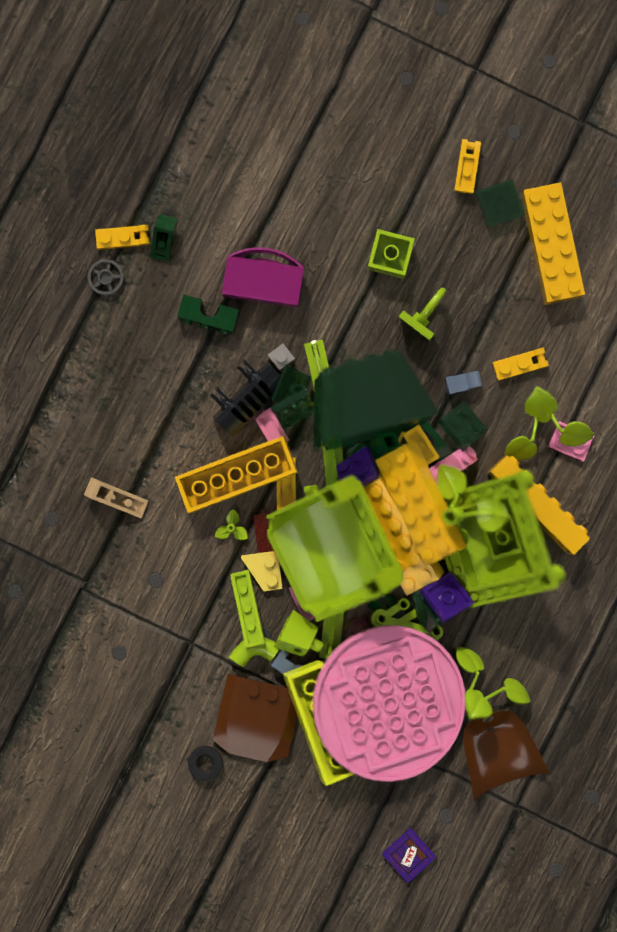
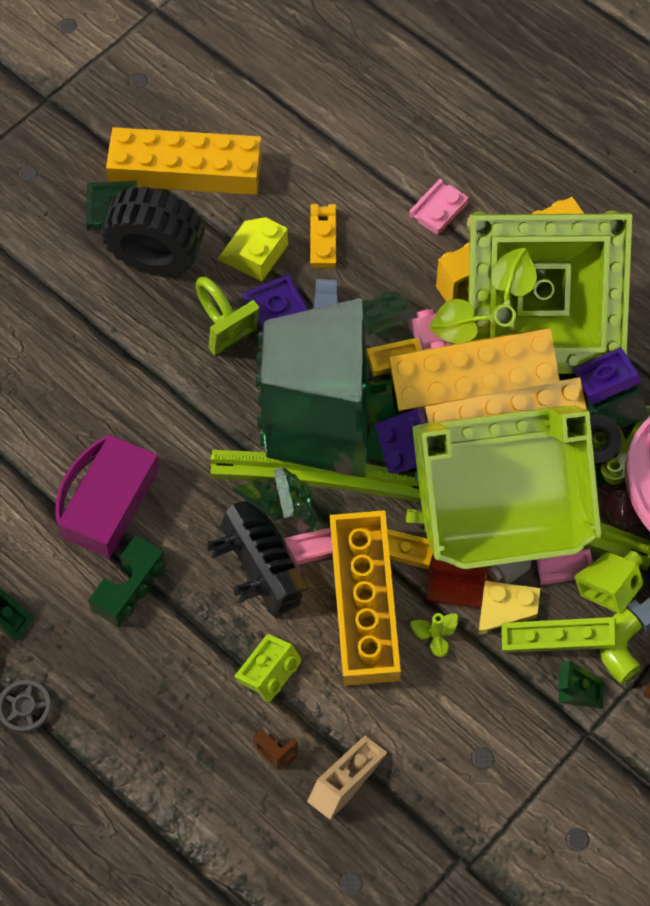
camera: 75 degrees left, 25 degrees down
(120, 443) = (270, 749): none -> reddish brown bracket
(175, 425) = (269, 667): none -> lime bracket
(218, 631) = (579, 686): none -> dark green slope
(281, 357) = (217, 501): light grey brick -> none
(390, 254) = (129, 336): lime brick -> none
(394, 613) = (613, 438): none -> black tyre
(452, 348) = (275, 299): none -> dark purple tile
(467, 167) = (51, 228): yellow plate -> none
(471, 243) = (152, 231): none -> black tyre
(494, 317) = (256, 247): none -> neon yellow slope
(542, 407) = (385, 200): lime plant -> none

